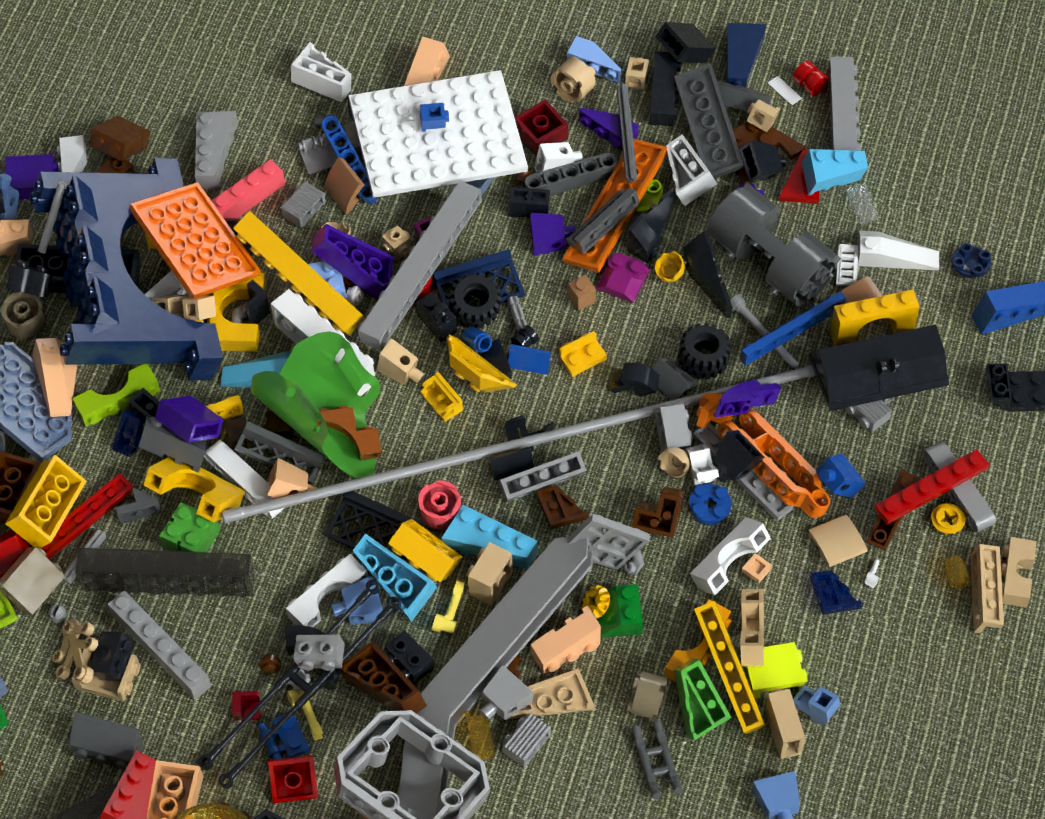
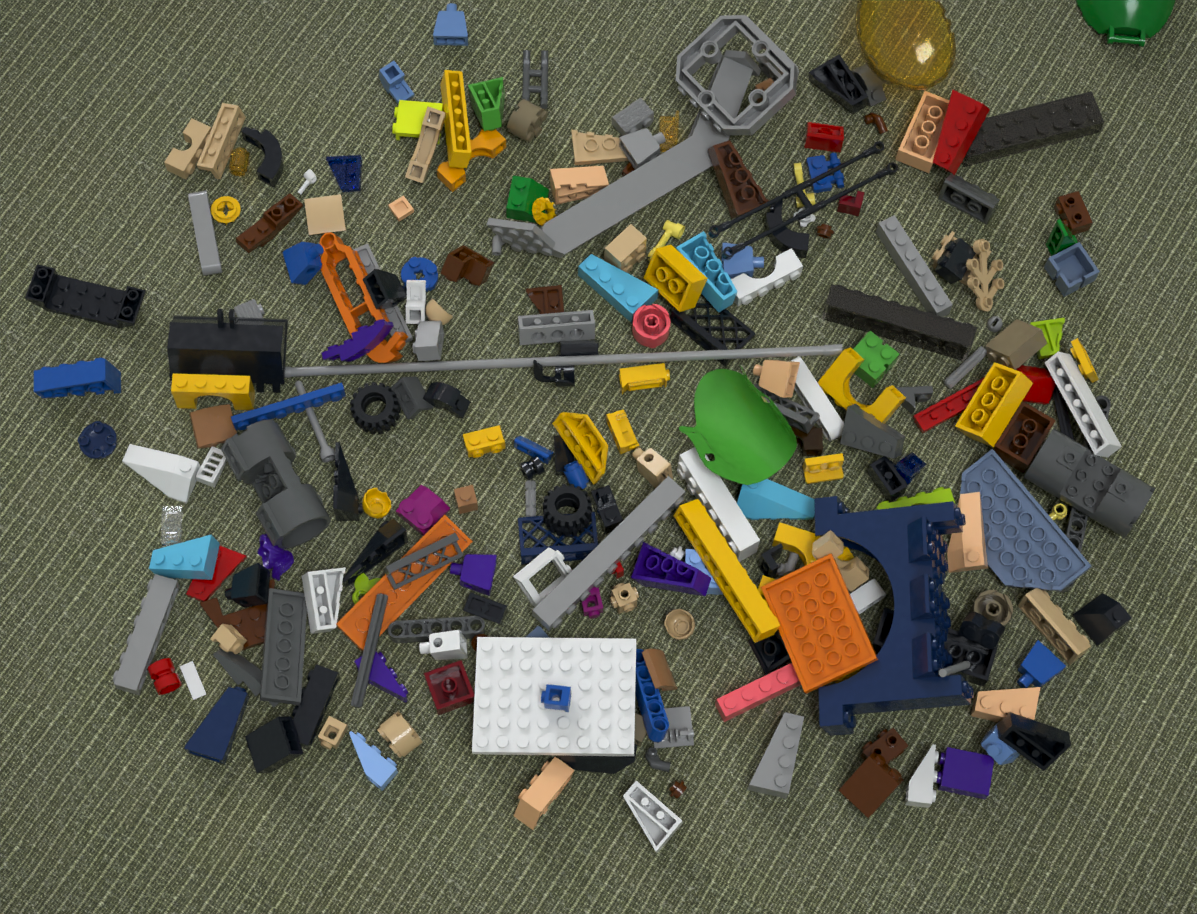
camera: 170 degrees left, 10 degrees up
(189, 418) = (856, 442): dark purple brick -> none
(302, 204) = (703, 667): light grey brick -> none
(303, 103) = (677, 789): none -> reddish brown plate
(319, 652) = (785, 206): light grey brick -> none
(343, 420) = (718, 418): dark orange arch -> none
(409, 657) = (709, 206): black brick -> none
(436, 449) = (643, 377): none -> yellow window
(480, 234) = (523, 576): none -> white window
(745, 538) = (440, 208): white arch -> none
(784, 723) = (427, 71): tan brick -> none
(925, 593) = (272, 166): none -> black arch
(931, 486) = (230, 225): red plate -> none

